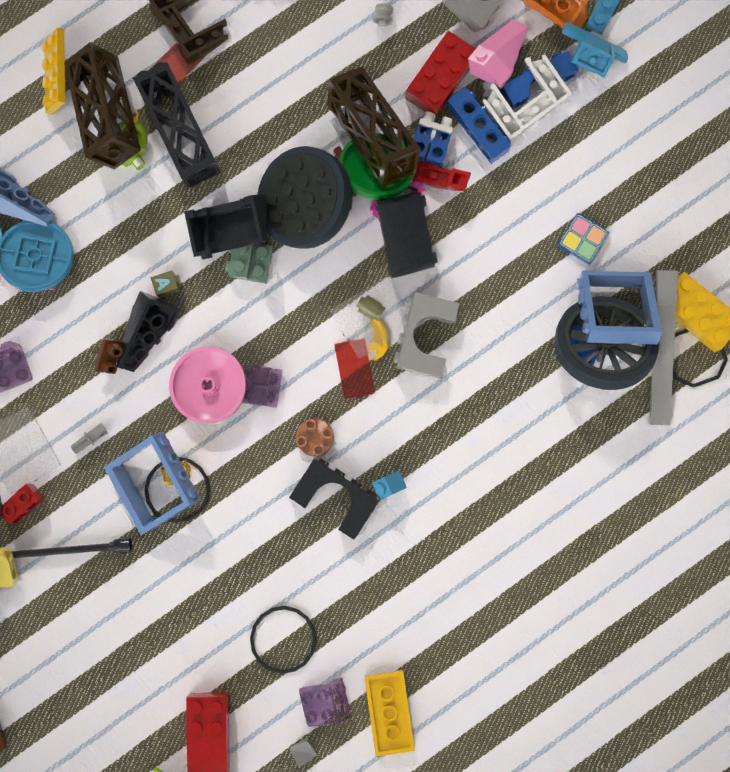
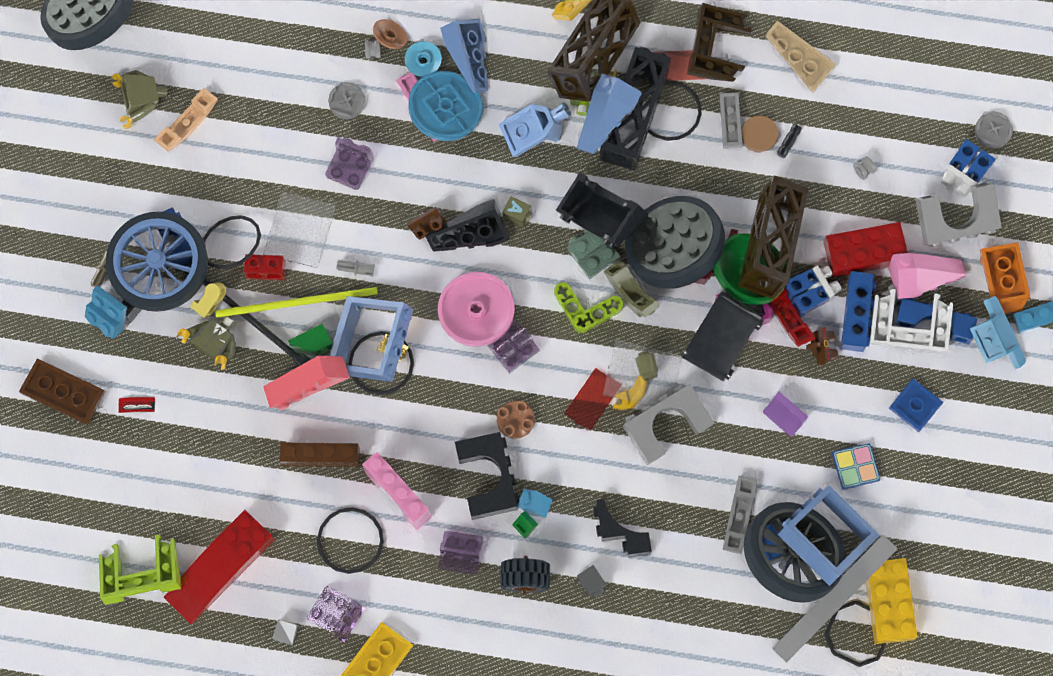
camera: 45 degrees right, 10 degrees down
(28, 695) = (136, 404): none -> red sticker
(36, 595) = (212, 340): none -> olive torso
(69, 508) = (295, 302): none -> neon yellow piece
(113, 522) = (313, 342): none -> green slope
(115, 209) = (533, 126): none -> light blue plate
(137, 560) = (306, 380): none -> coral wedge
(157, 139) = (607, 107): none -> medium blue wedge
(199, 601) = (319, 454): none -> reddish brown brick
(228, 90) = (697, 120): none -> black piece
(254, 69) = (730, 120): none -> light grey plate
(280, 576) = (383, 475): none -> bright pink arch
(284, 60) = (759, 134): none -> medium nougat tile
(285, 315) = (580, 313): none -> lime beam
(306, 265) = (630, 291): none -> olive arch
(310, 45) = (789, 141): none -> black axle
(370, 571) = (460, 552): none -> clear purple bracket
(396, 506) = (525, 524): none -> green plate
(435, 545) = (525, 575): none -> black wheel
(457, 452) = (635, 543): none -> black arch
(479, 176) = (820, 346): none -> reddish brown hips
(483, 501) = (592, 582): none -> dark grey brick
(499, 248) = (785, 414): none -> medium lavender panel
(538, 352) = (739, 514): none -> light grey slope
(581, 154) = (916, 405): none -> blue tile

